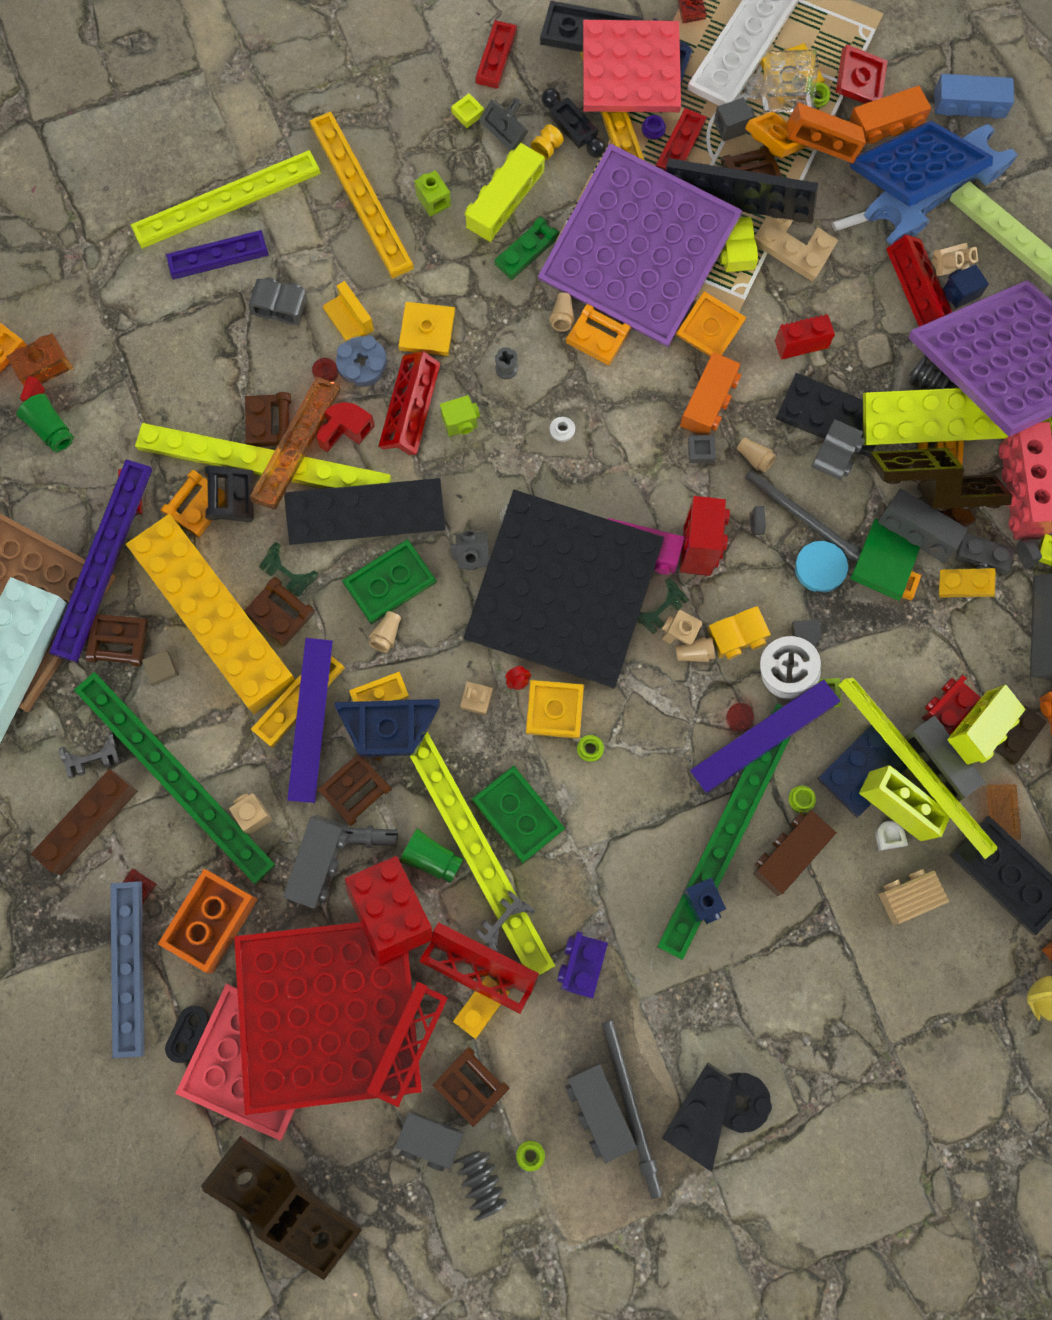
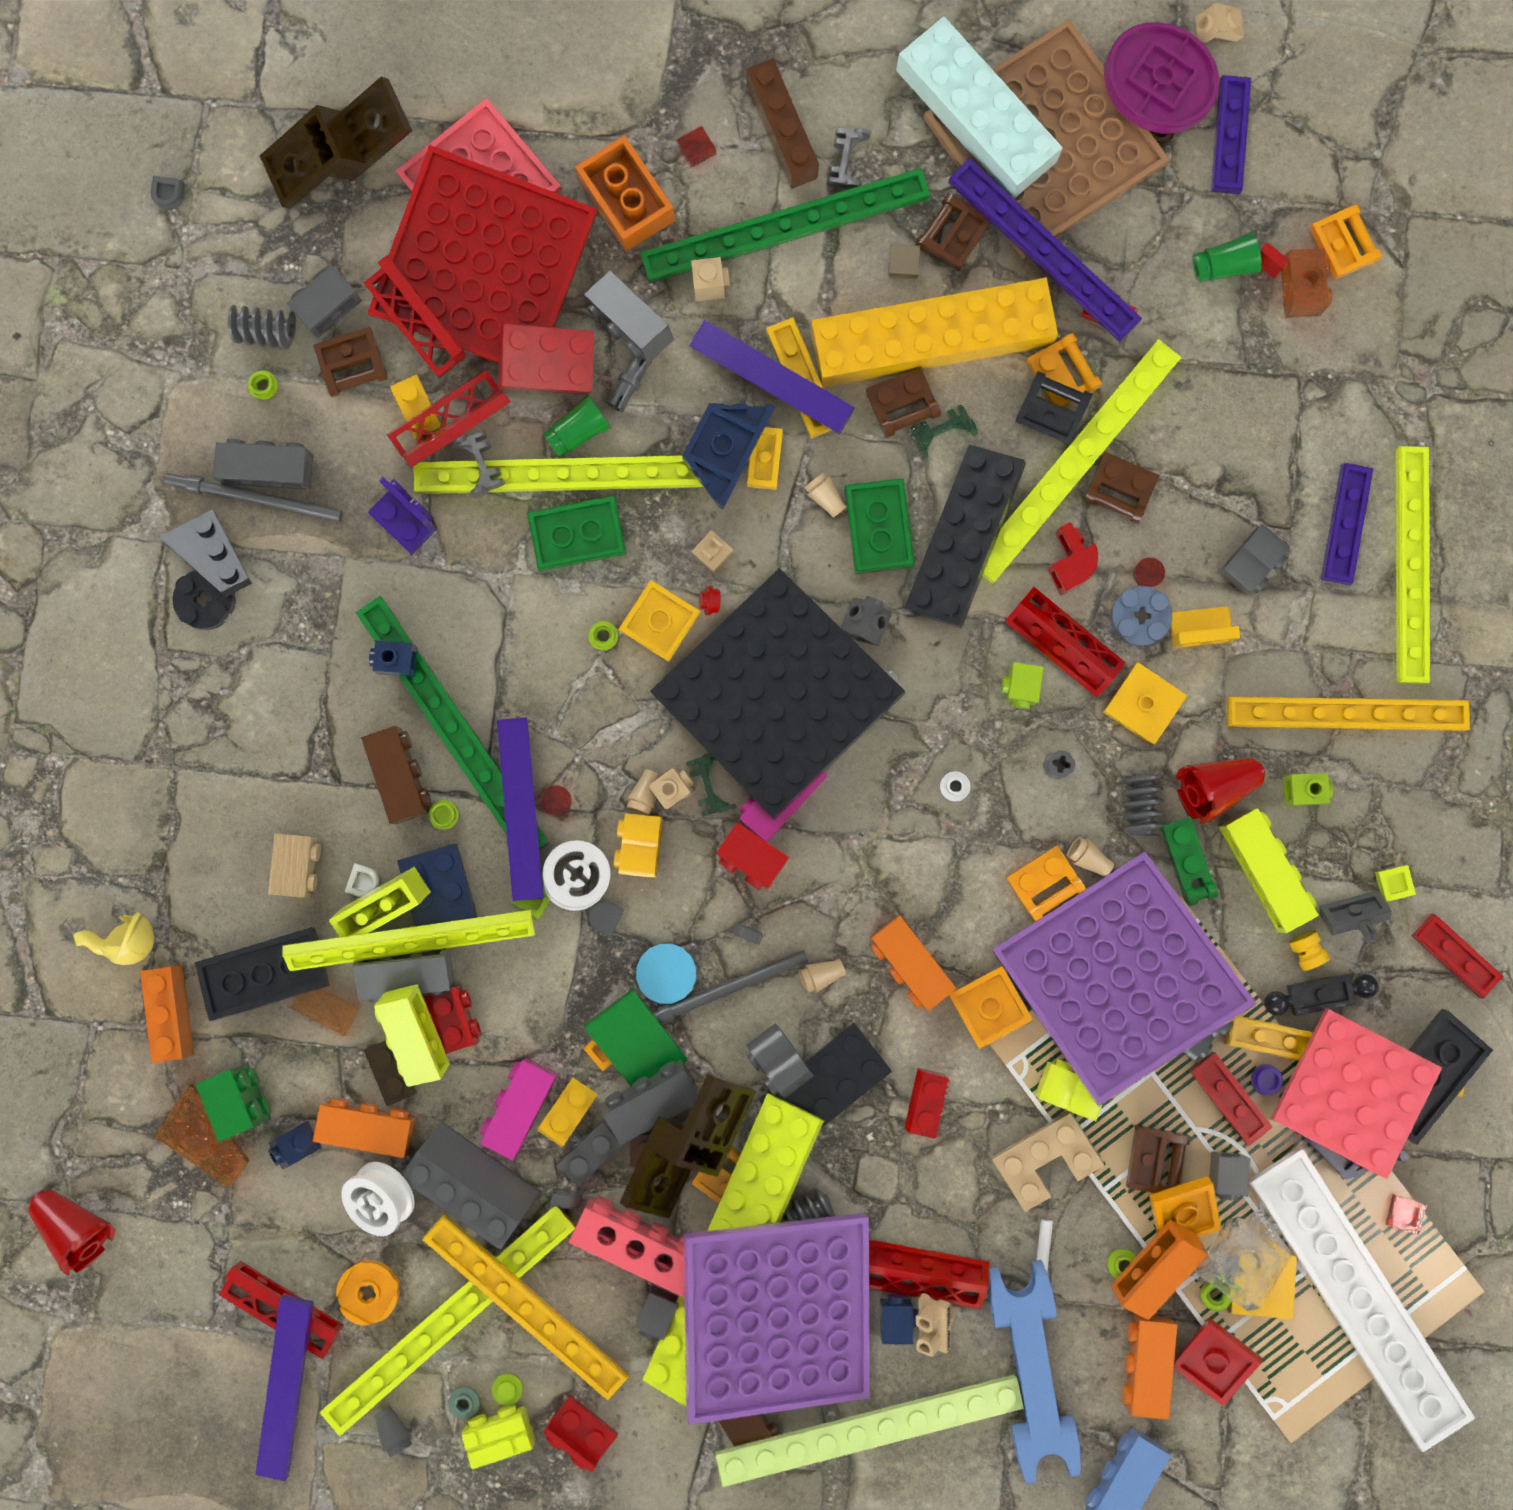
camera: 120 degrees right, 10 degrees up
(127, 970) = (622, 103): sand blue plate -> none
(187, 1033) = (536, 133): black plate -> none
(295, 444) = (1075, 498): clear orange plate -> none
(348, 782) = (691, 385): reddish brown plate -> none
(464, 249) = (1217, 786): none -> red cone
(503, 291) = (1143, 804): none -> dark grey piece
(701, 448) = (857, 920): dark grey plate -> none
(750, 190) = (1124, 1125): black plate -> none
(830, 169) = (1117, 1256): none -> lime plate
(921, 163) = (1066, 1357): blue plate -> none
(986, 621) = (517, 1108): none -> dark pink brick

